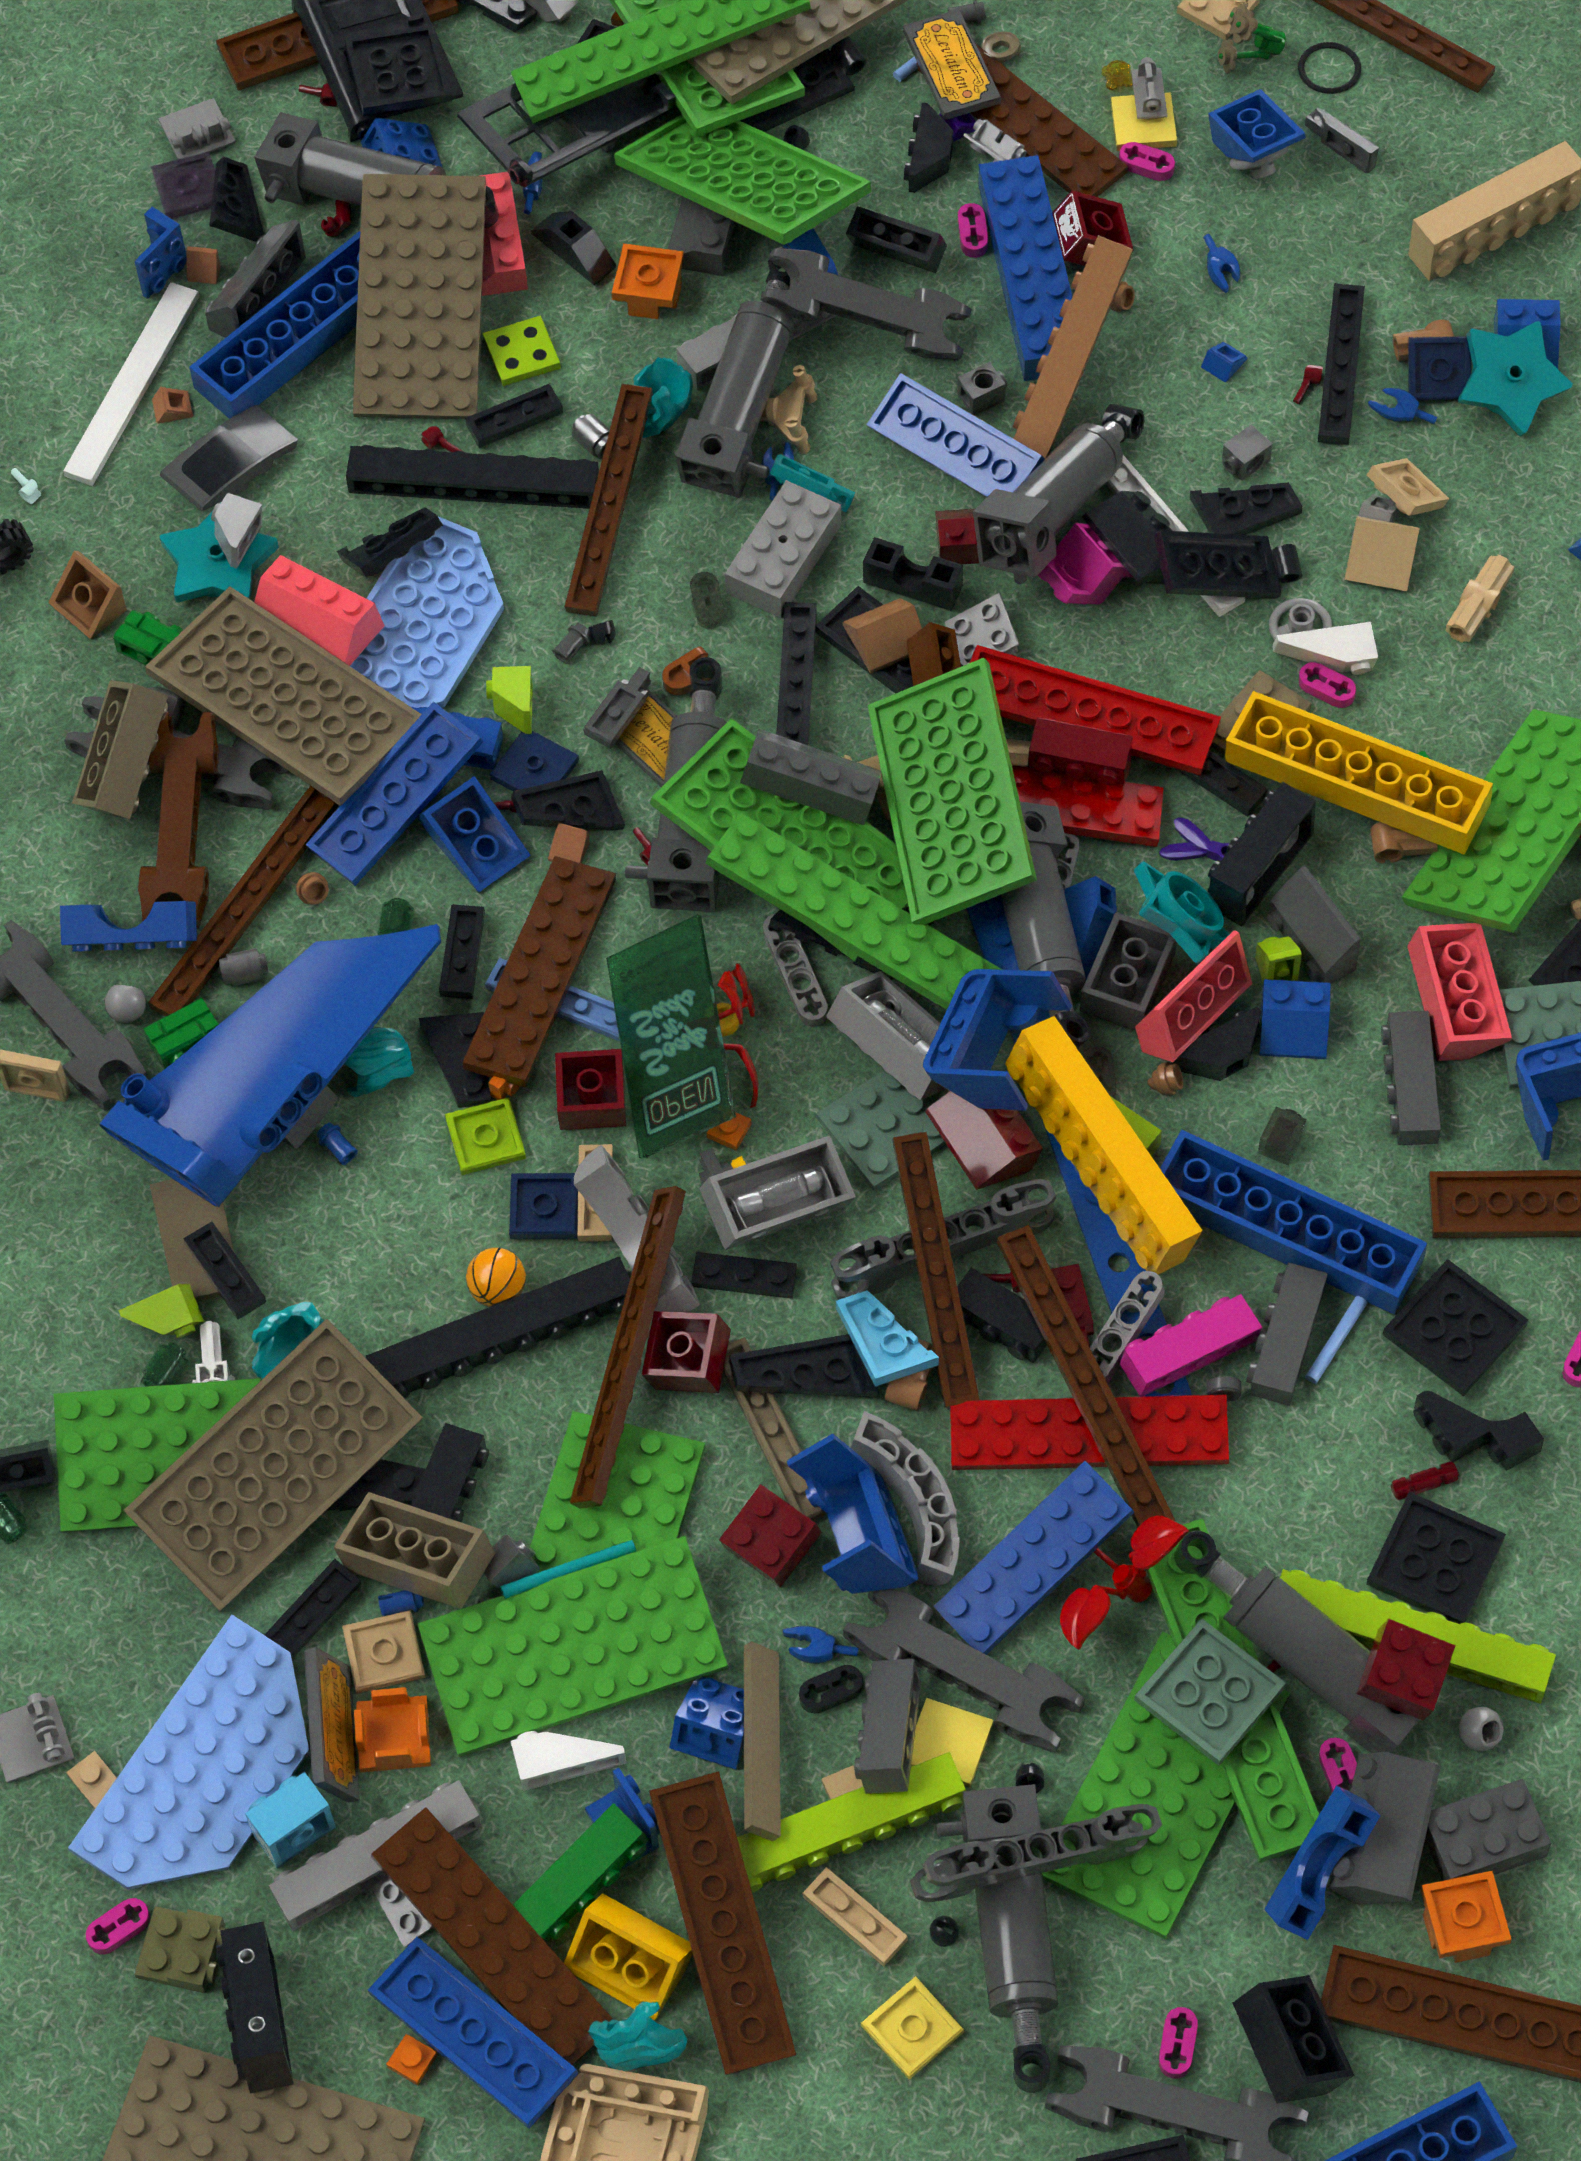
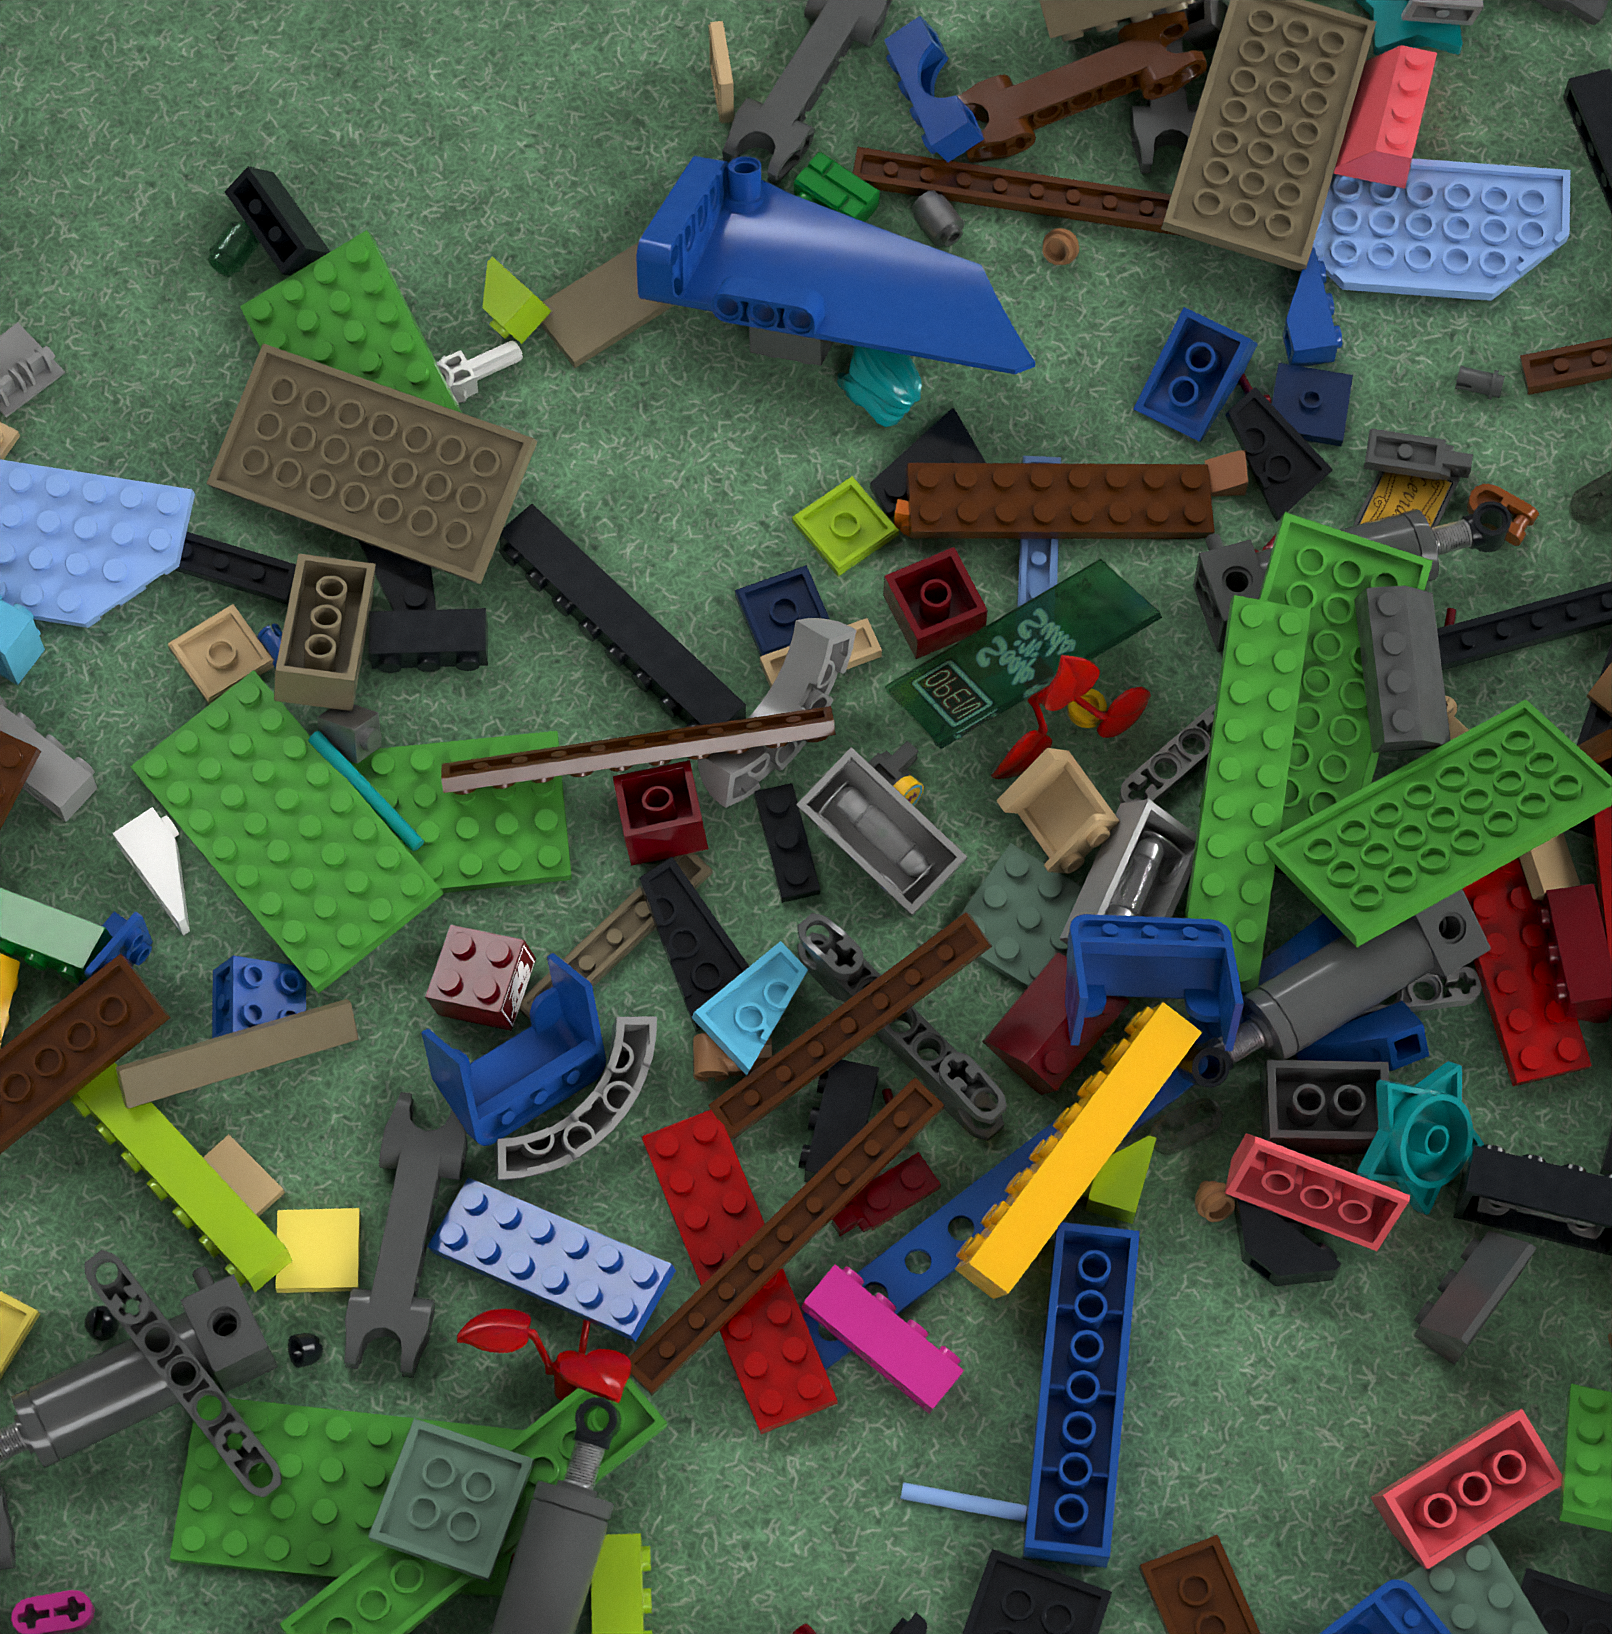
camera: 65 degrees right, 5 degrees up
(125, 1003) = (846, 126): light grey piece -> none
(165, 1365) = (452, 327): clear green brick -> none
(224, 1270) = (578, 336): black plate -> none
(280, 1335) = (530, 416): teal hair -> none
(330, 1136) = (778, 379): blue pin -> none
(331, 1725) = (110, 631): tile -> none
(381, 549) = (1485, 143): black wing -> none
(392, 1731) = (133, 695): orange panel -> none
(394, 793) = (1204, 276): blue plate -> none
(395, 916) = (1055, 341): clear green brick -> none
(462, 951) = (1051, 418): black plate -> none
(495, 1276) = (674, 593): light orange piece -> none
(512, 695) = (1383, 347): lime slope -> none
(603, 630) = (1510, 405): black hinge -> none
(730, 1132) = (957, 763): orange plate -> none
(813, 1061) = (1060, 809): none -> tan panel
(821, 1647) = (383, 1079): blue hand -> none
(826, 1682) = (342, 1100): black beam -> none
(855, 1916) = (83, 1224): tan plate -> none
(888, 1726) = (296, 1175): dark grey brick -> none
(1127, 1332) = (875, 1251): light grey beam -> none
(1197, 845) = (1539, 1131): dark purple piece -> none
(1224, 1386) = (846, 1396): dark grey tile -> none
(1278, 959) = (1415, 1268): lime slope -> none
(1282, 1135) = (1195, 1351): clear smoke brick -> none
(1288, 1333) = (944, 1442): dark grey brick -> none
(1295, 1019) = (1350, 1315): blue slope -> none
(1412, 1078) = (1332, 1474): dark grey brick -> none

